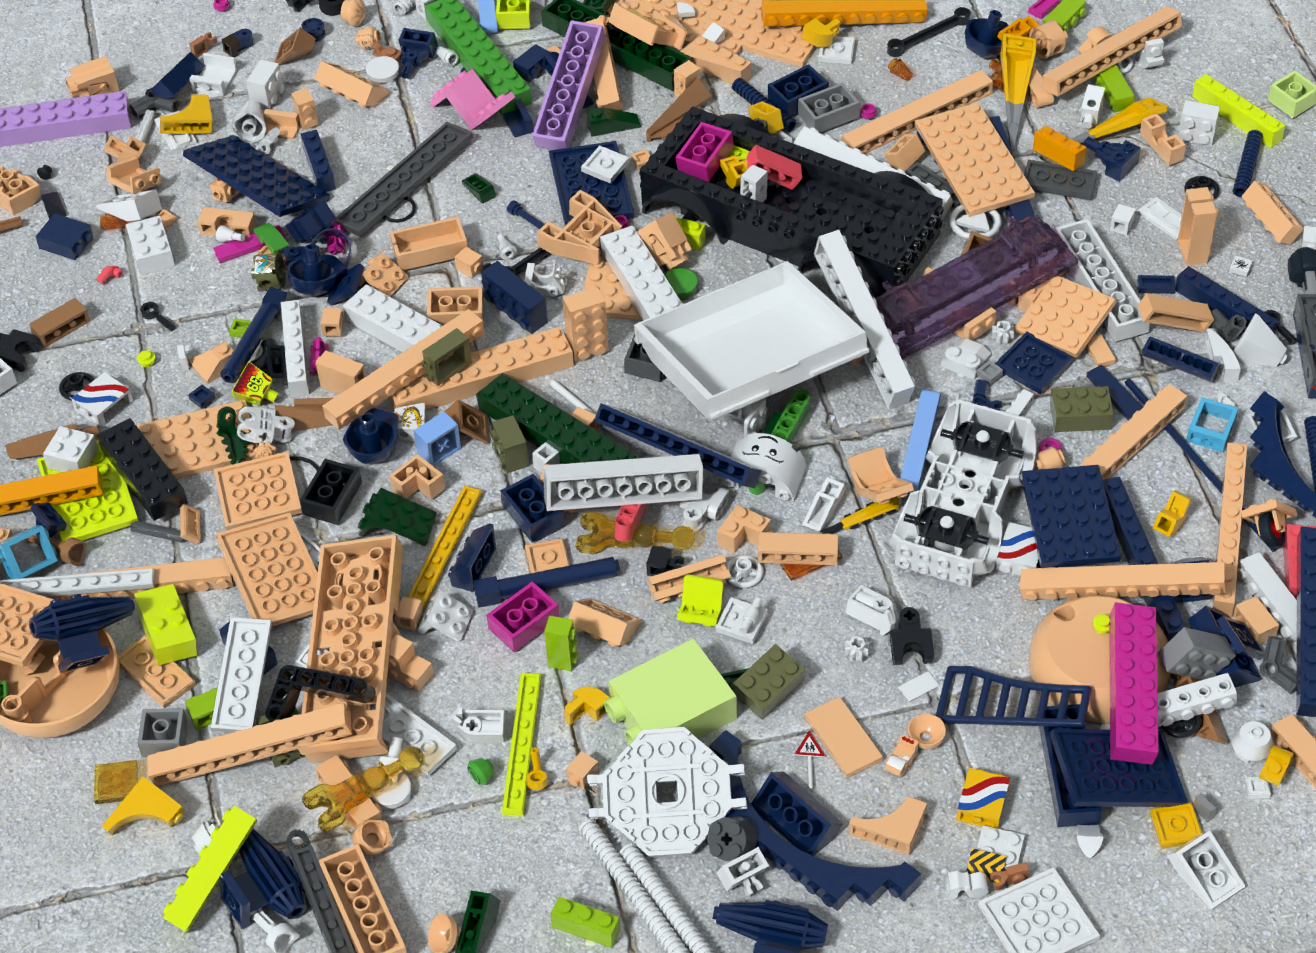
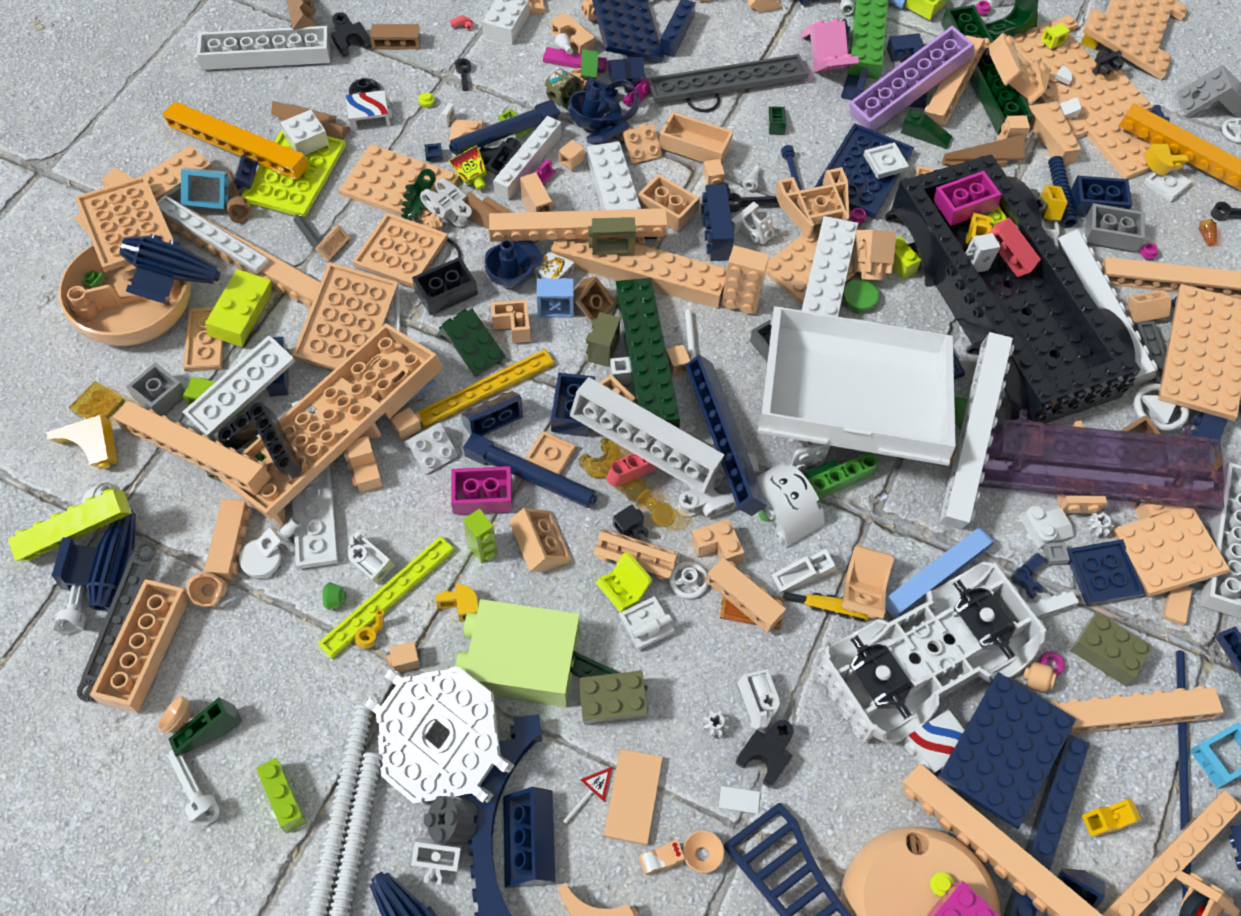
camera: 35 degrees right, 10 degrees up
(142, 469) = (335, 179): black brick -> none
(358, 788) = (227, 542): clear yellow piece -> none
(1119, 395) = (1160, 657): dark blue tile -> none

